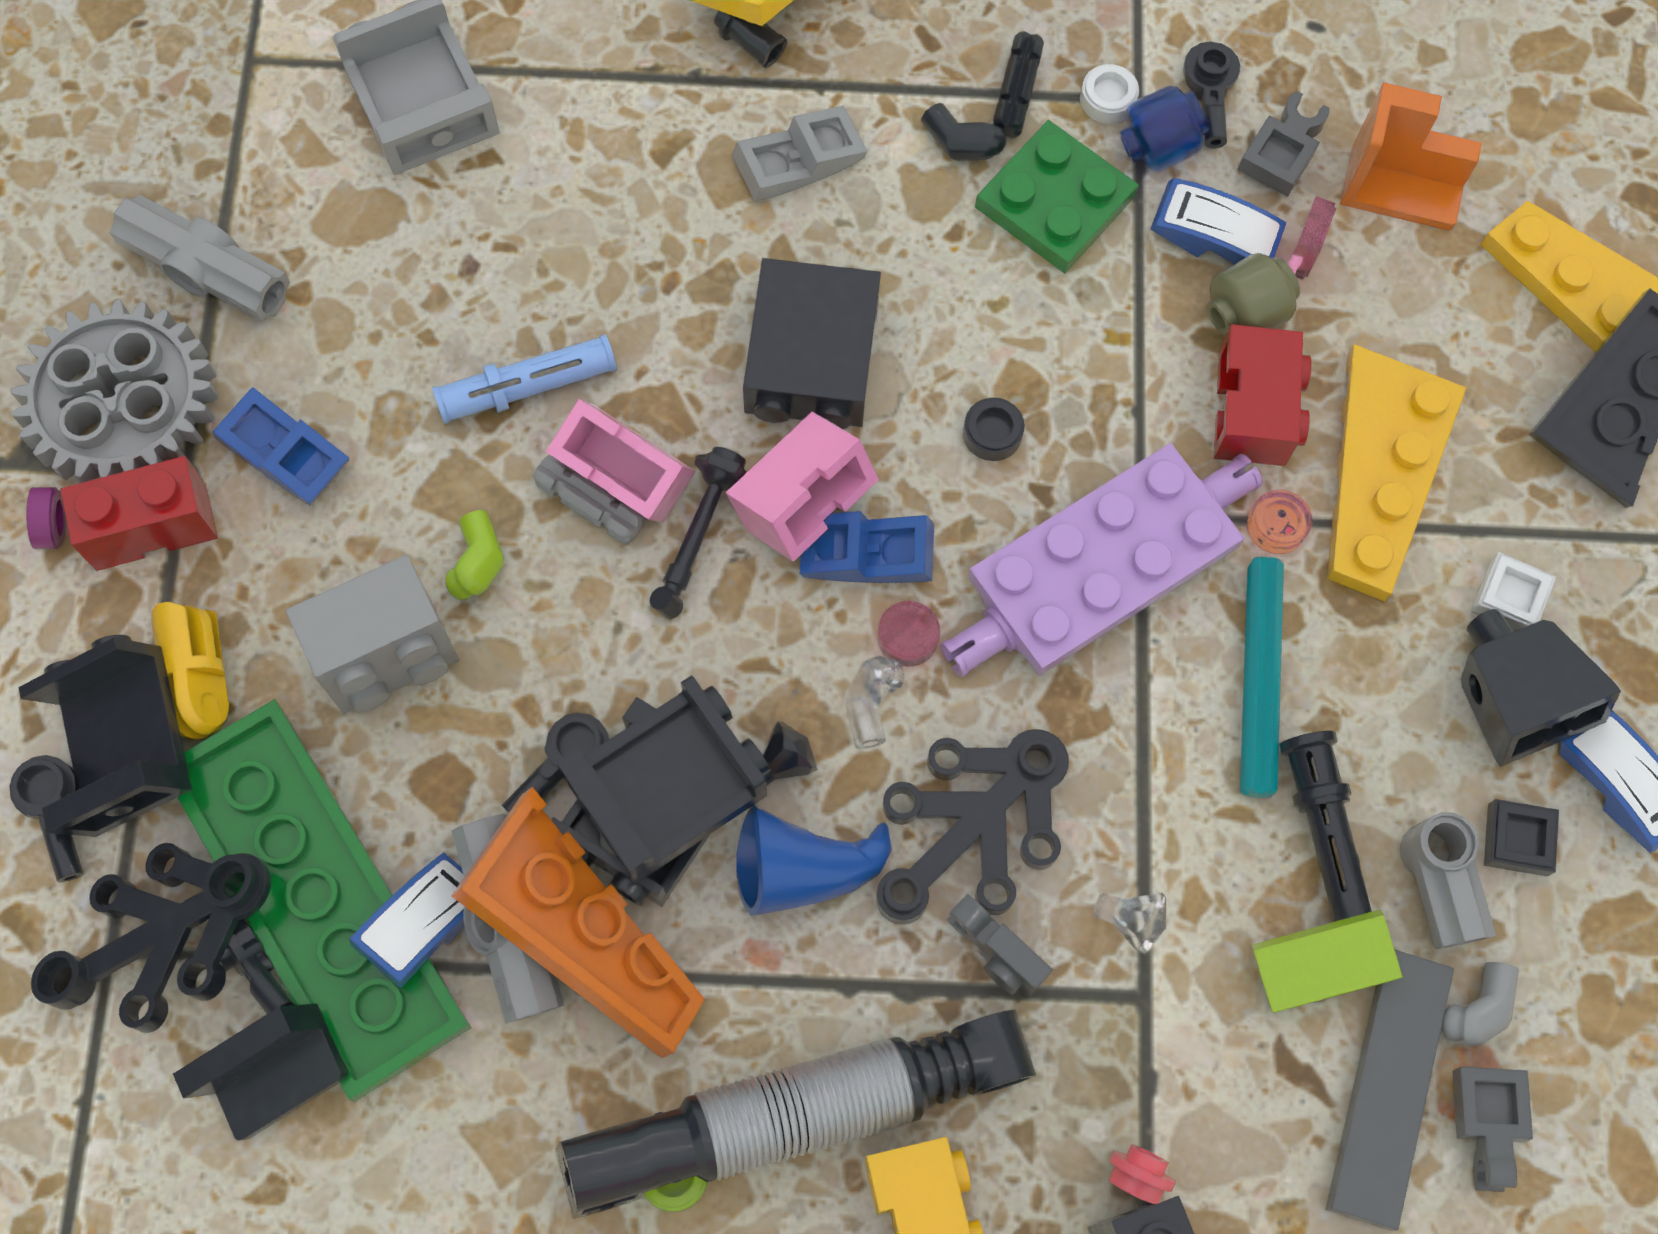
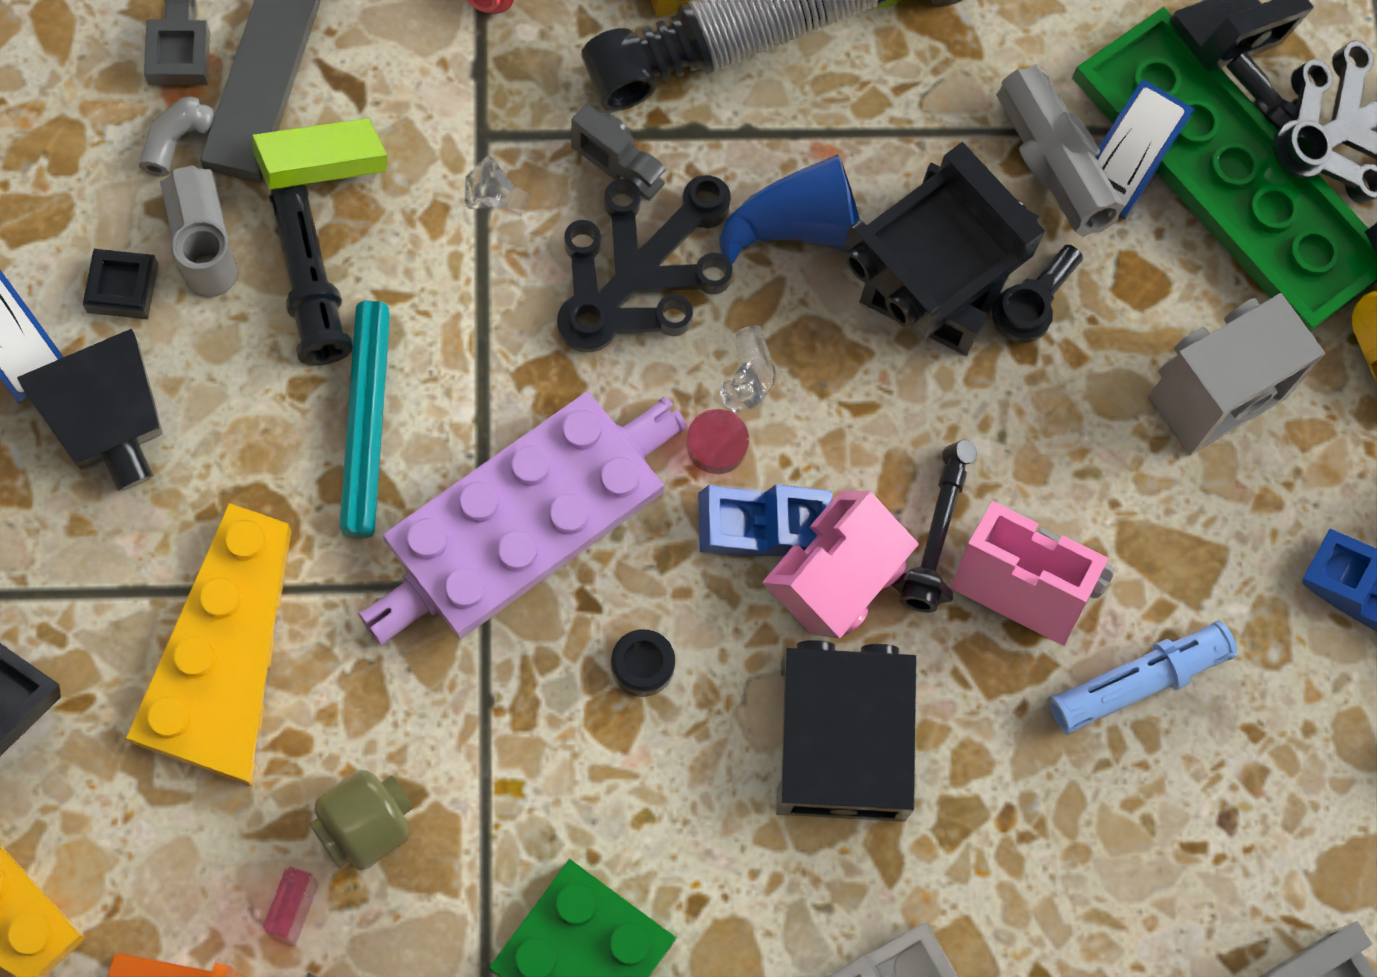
camera: 170 degrees right, 0 degrees up
(479, 562) = (1147, 483): lime arm -> none
(563, 917) = (1027, 139): orange wing -> none
(788, 754) = (826, 312): black rock -> none
(1213, 220) = (396, 921): slope -> none
(1262, 387) = (352, 718): red brick -> none
(1279, 521) = (339, 580): tile -> none
(1514, 590) = (99, 520): white tile -> none

